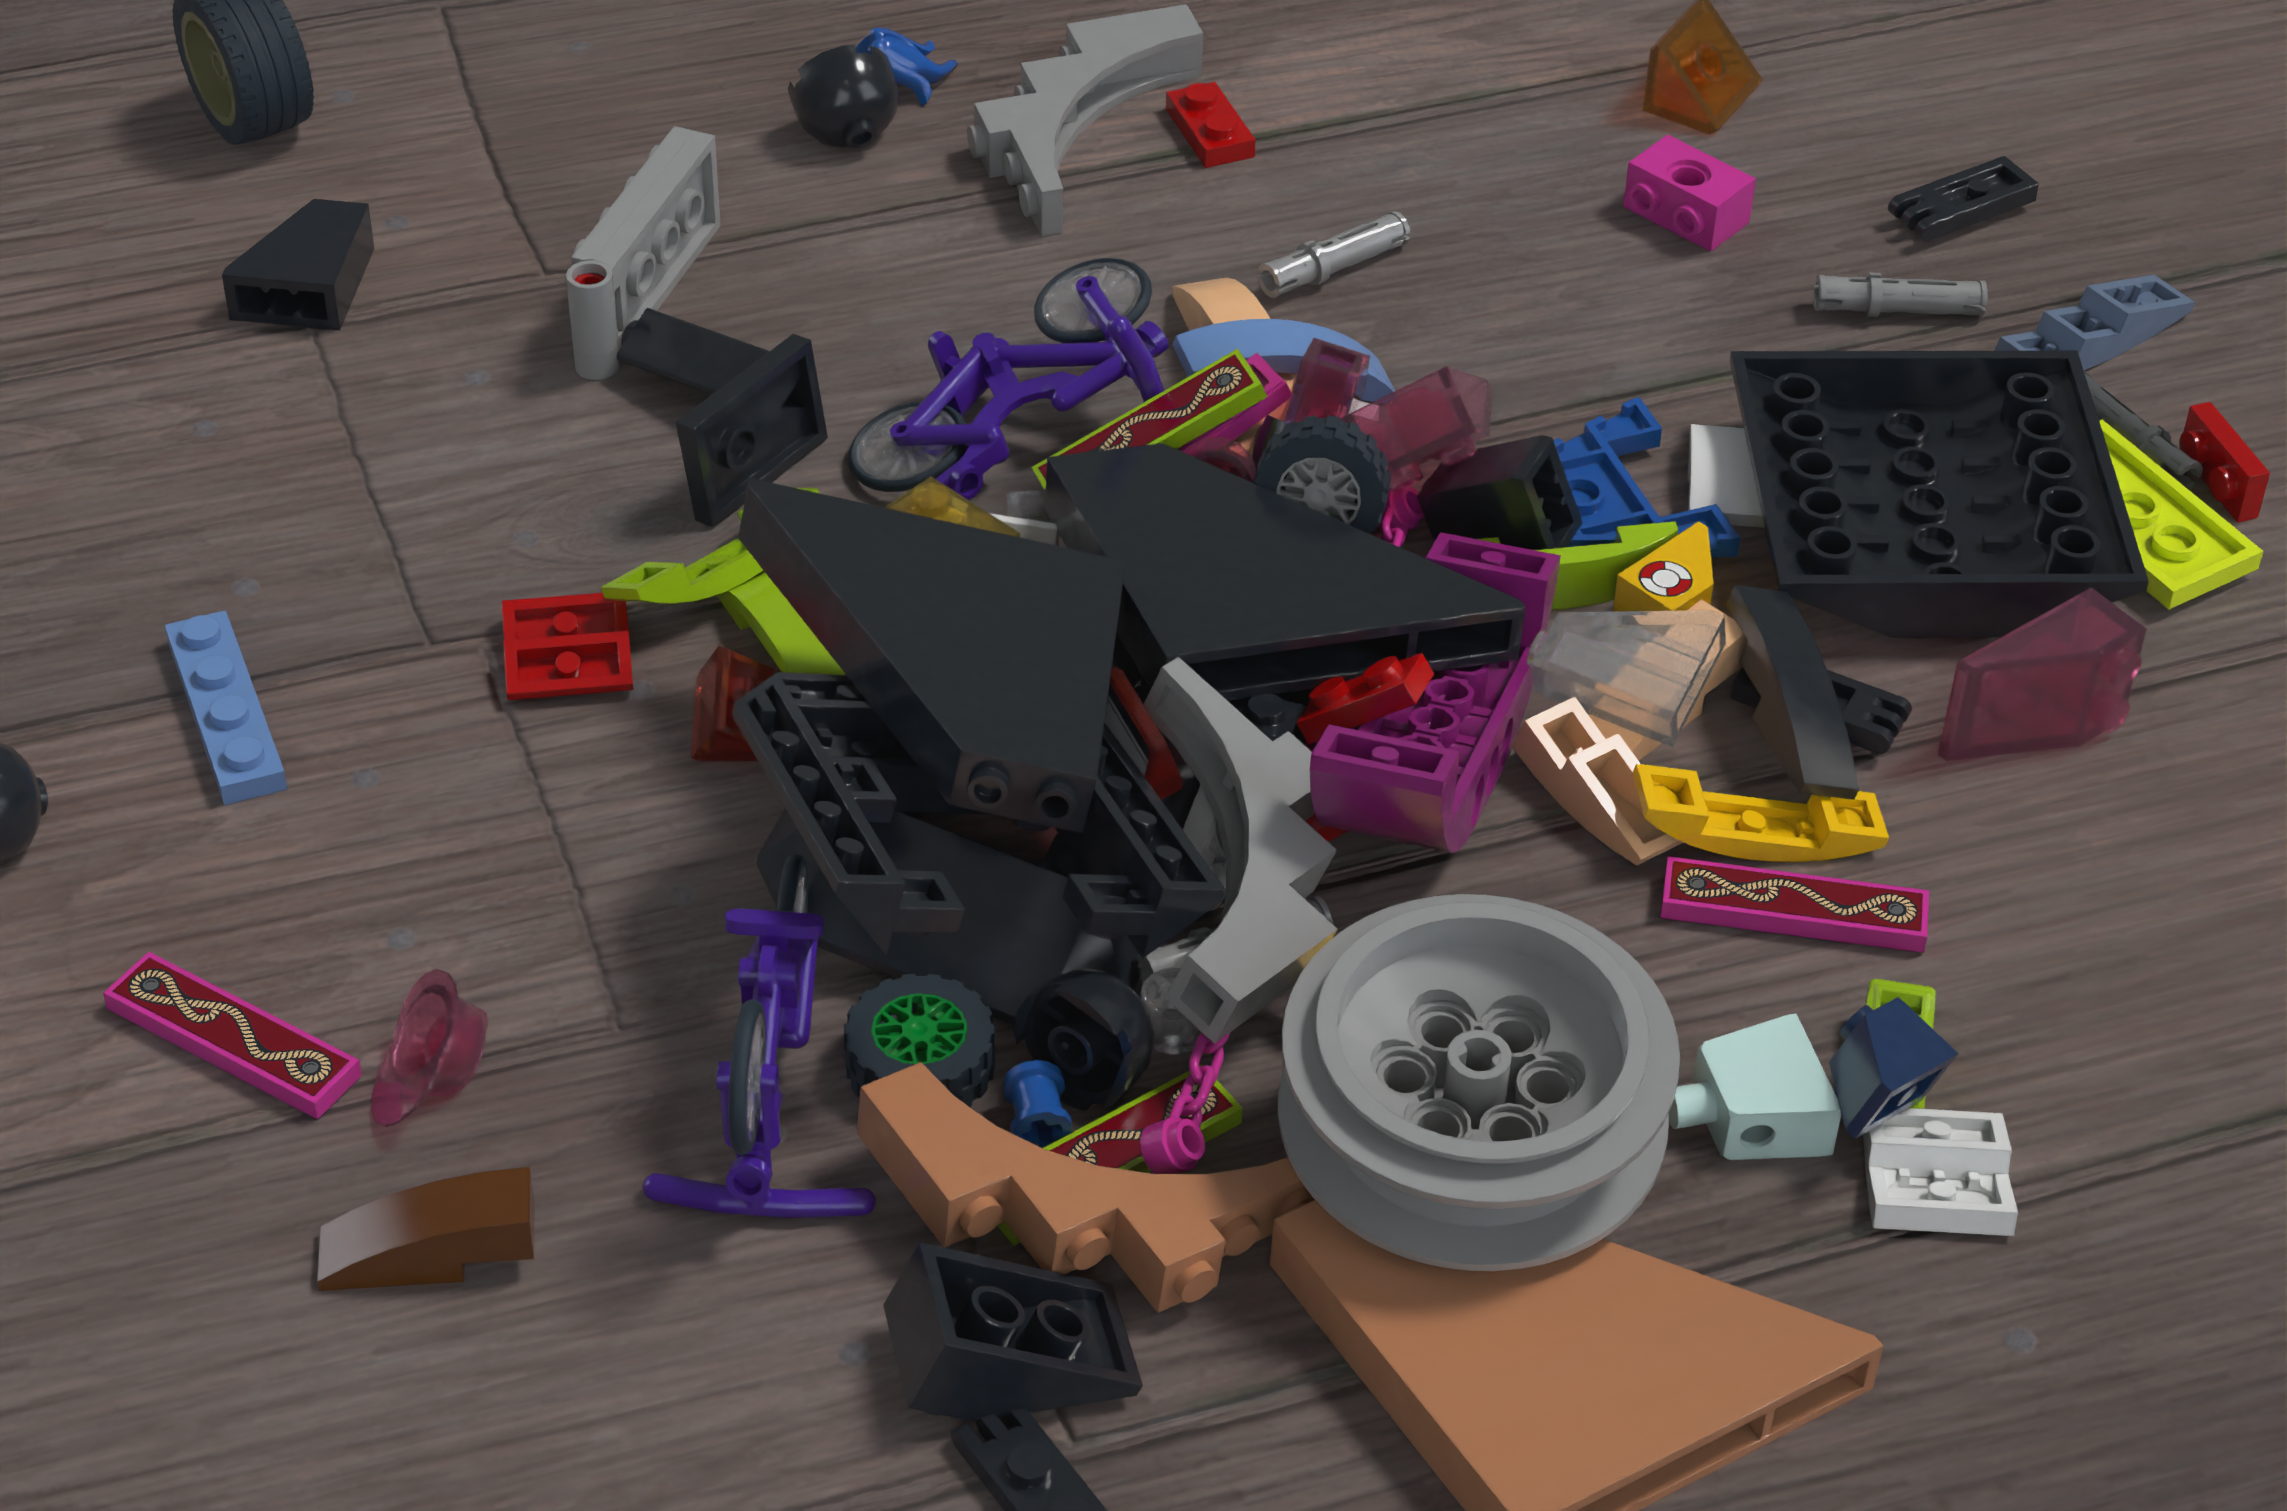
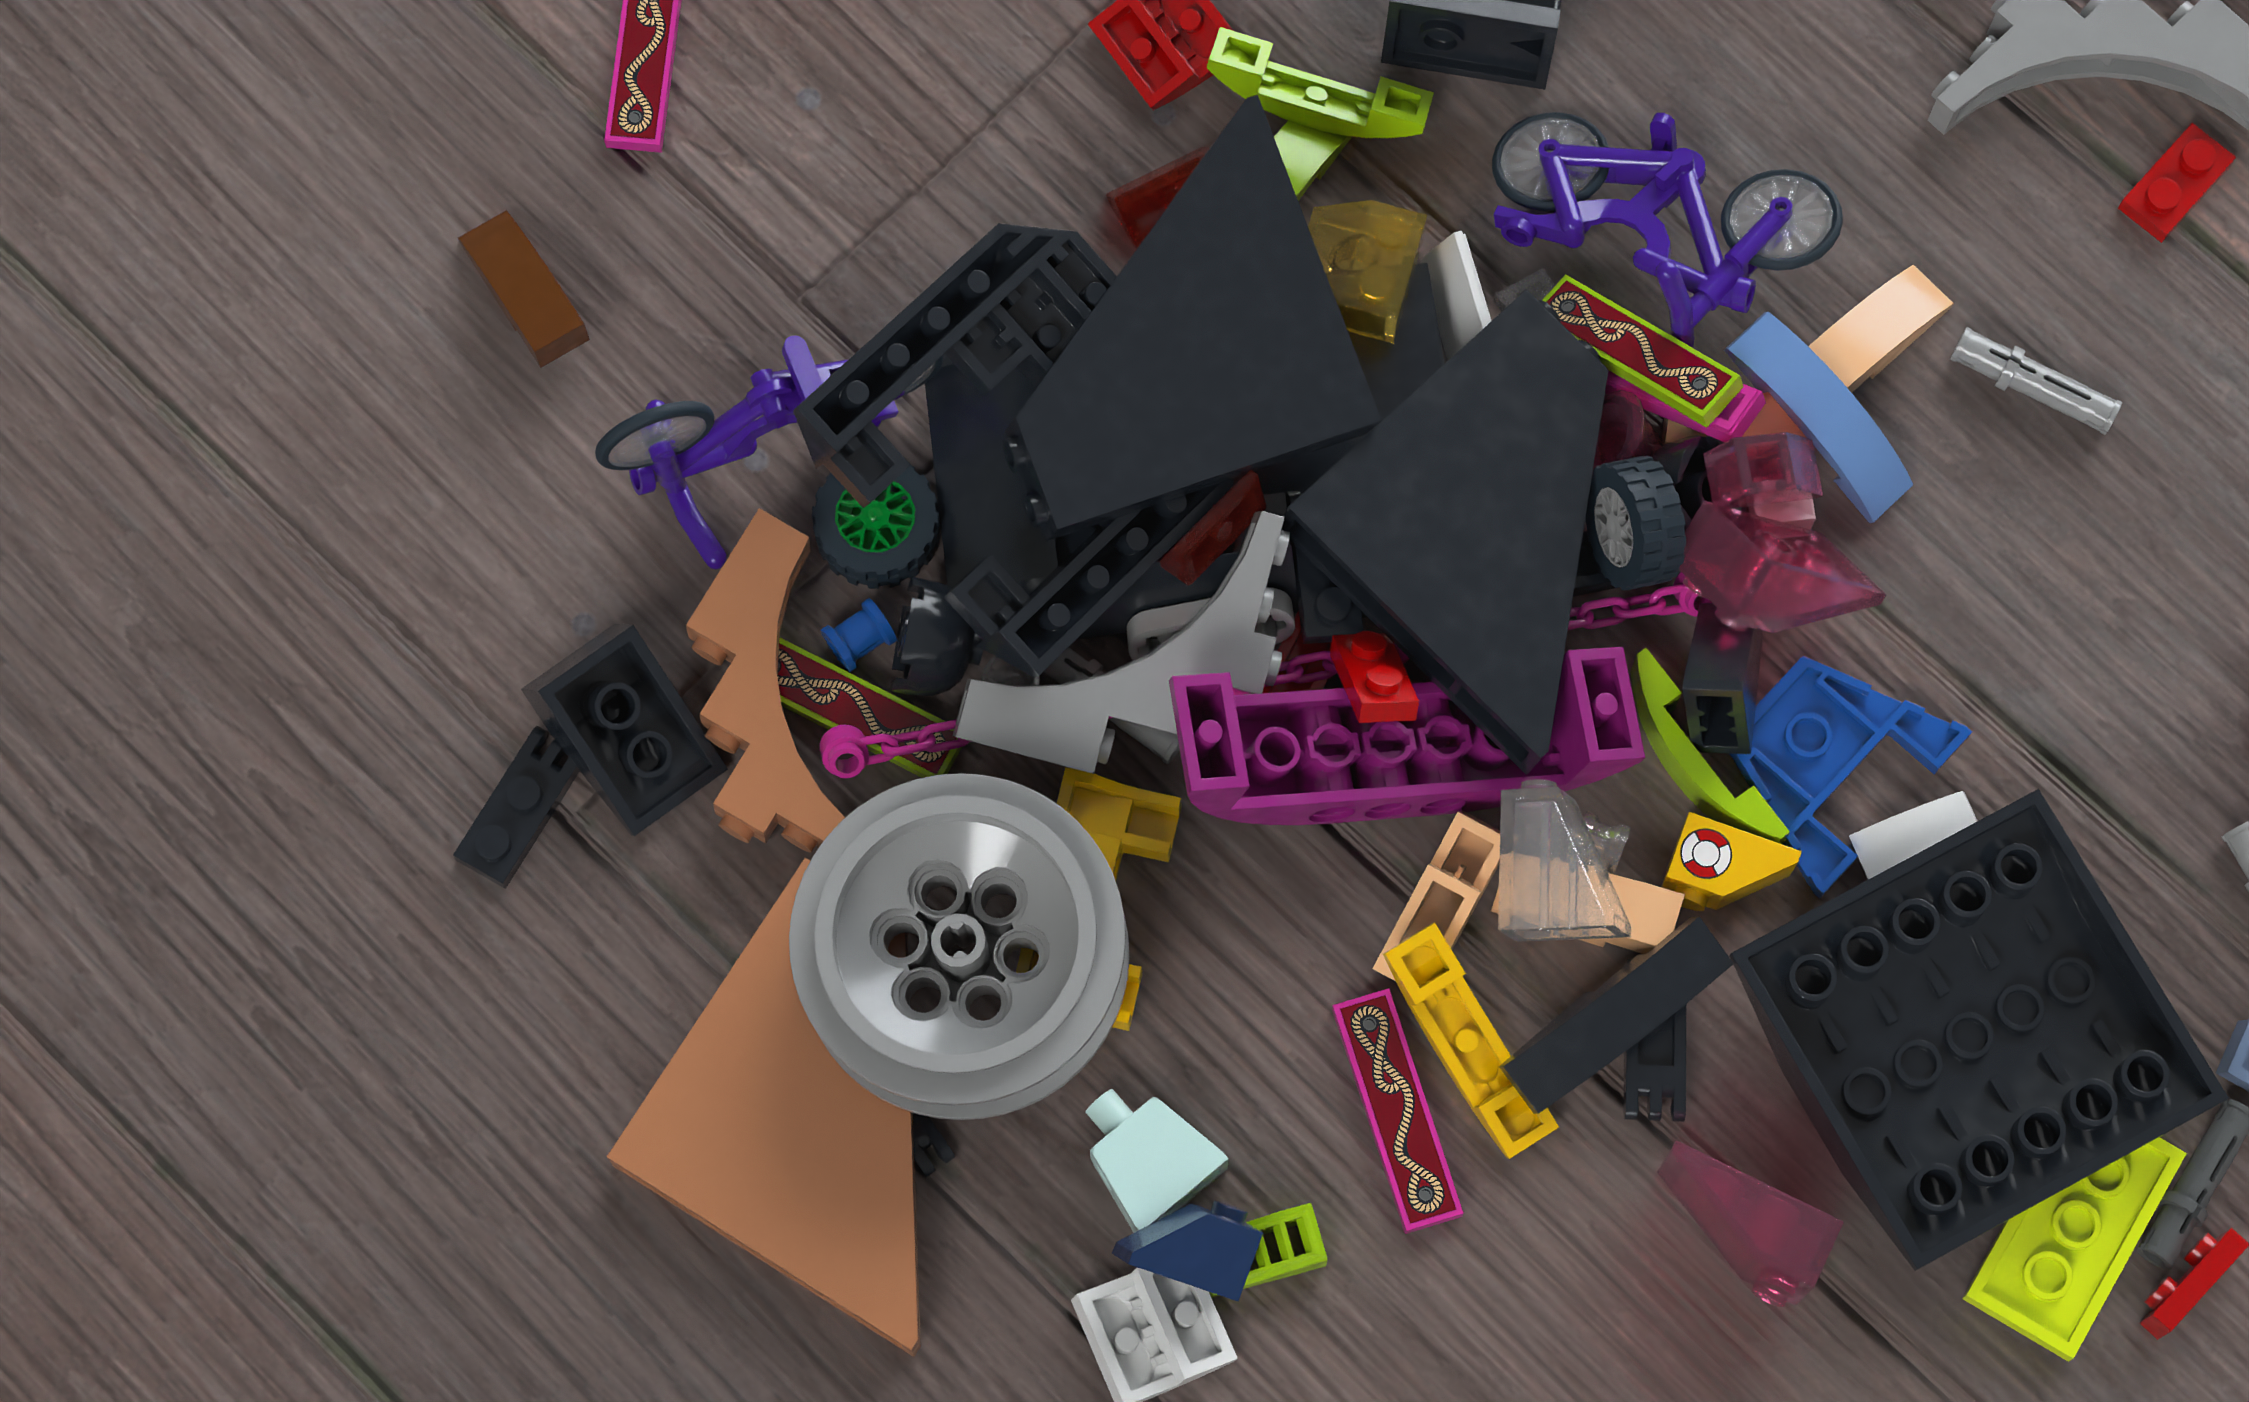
camera: 65 degrees right, 30 degrees up
(432, 1048) = (686, 191): clear pink piece -> none

